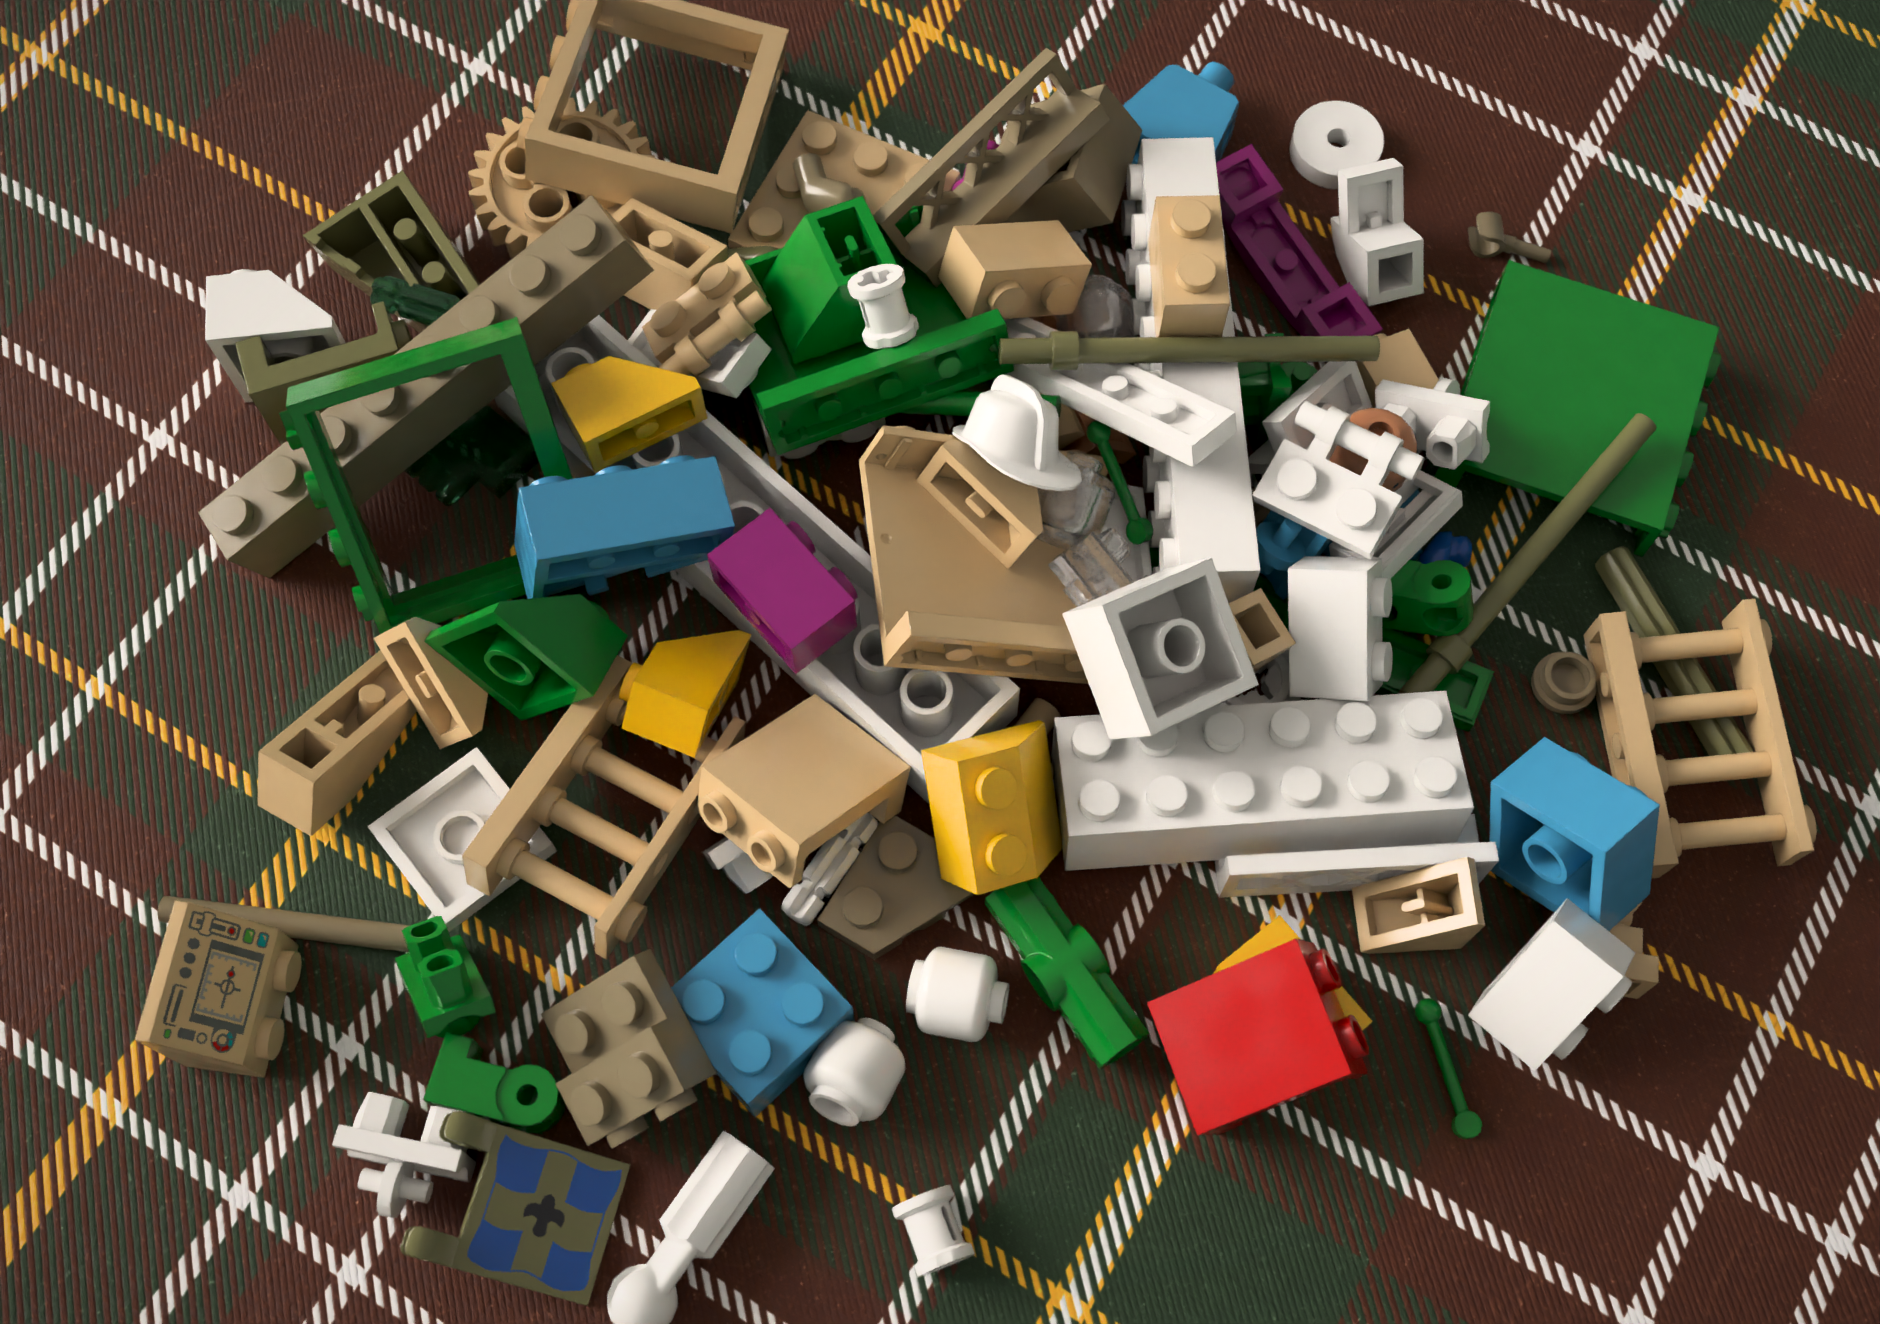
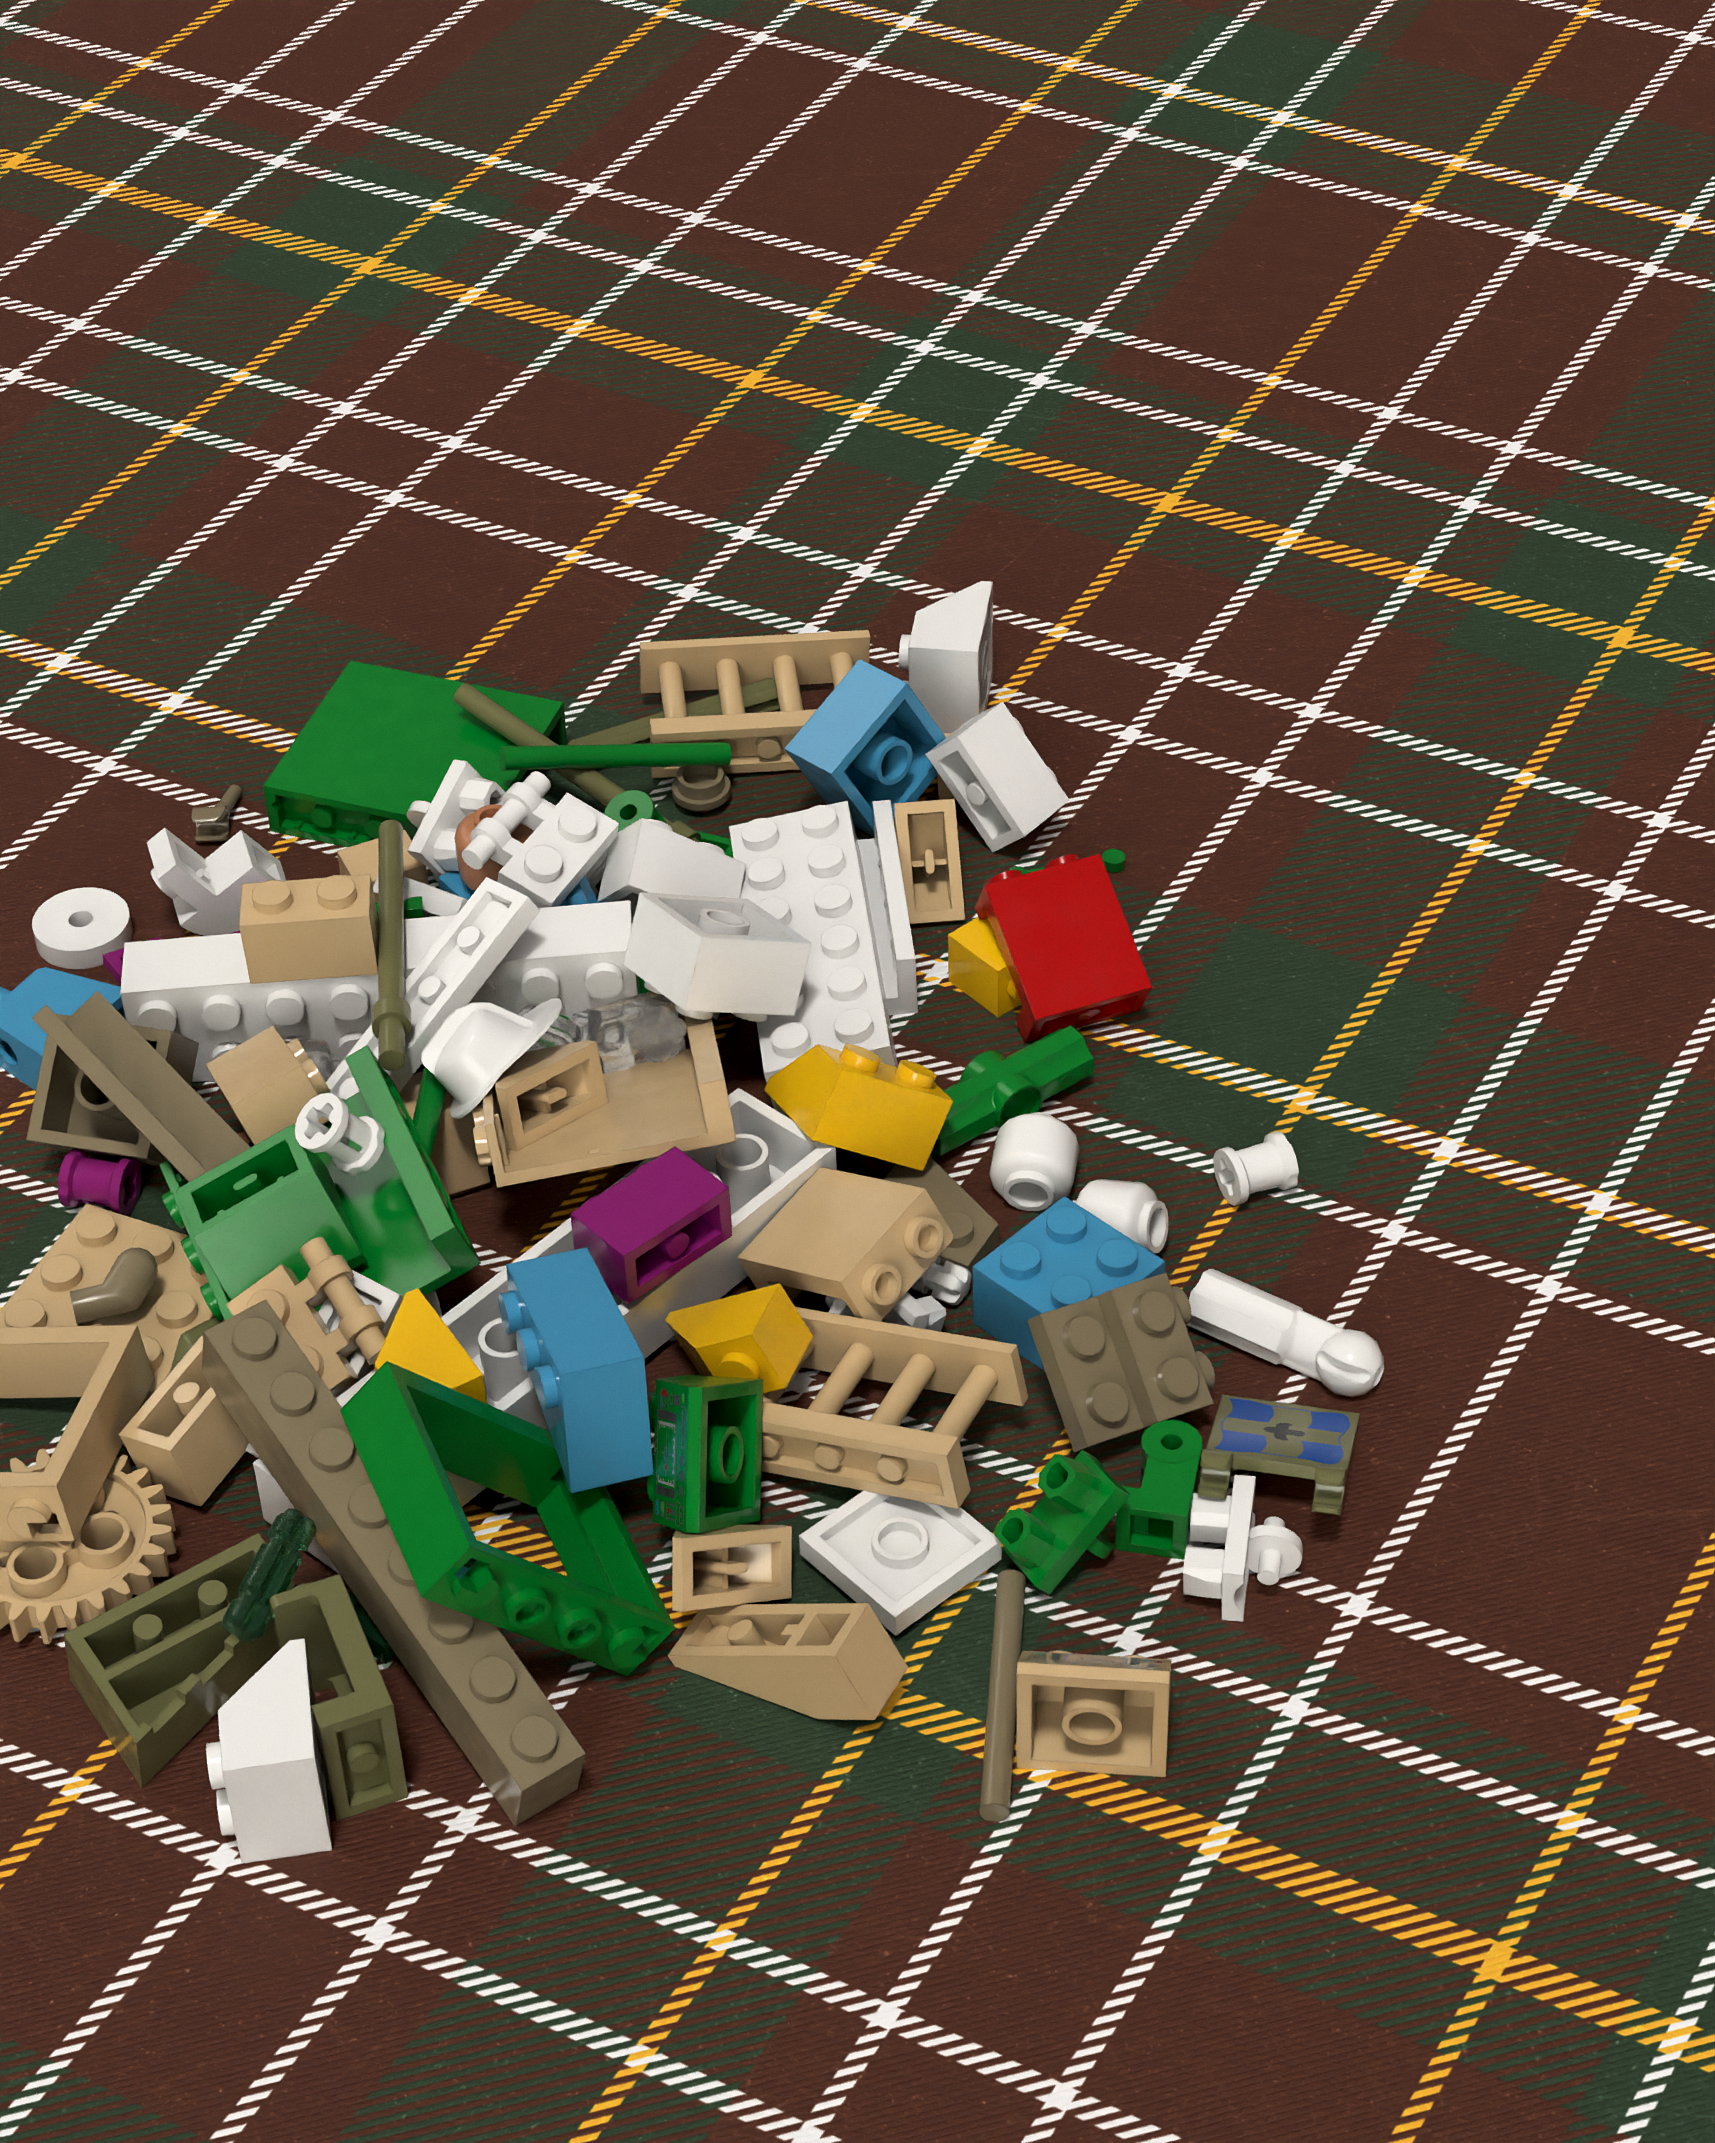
camera: 90 degrees left, 25 degrees down
(1556, 577) = (614, 756): none -> green bar
(1765, 946) = (952, 655): none -> white slope

